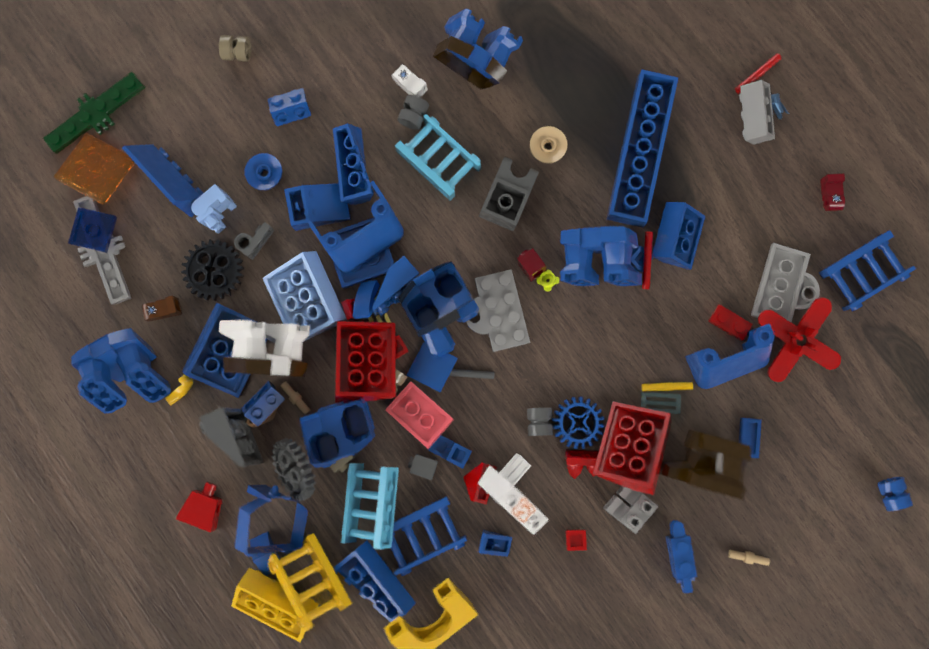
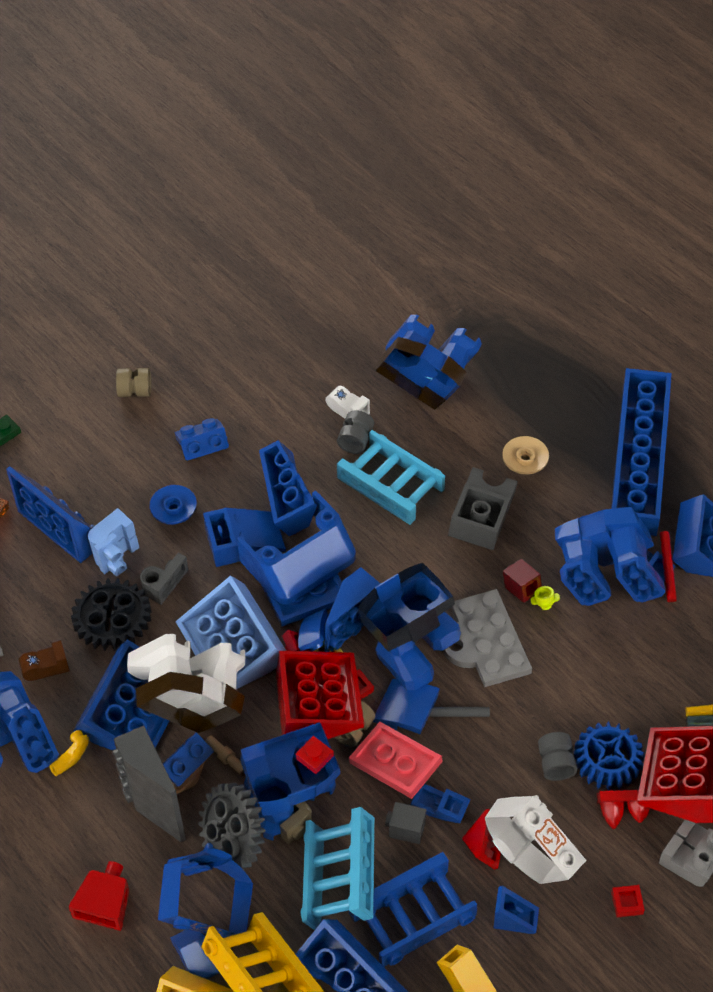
camera: 10 degrees left, 30 degrees down
(353, 429) = (314, 754): none -> red plate

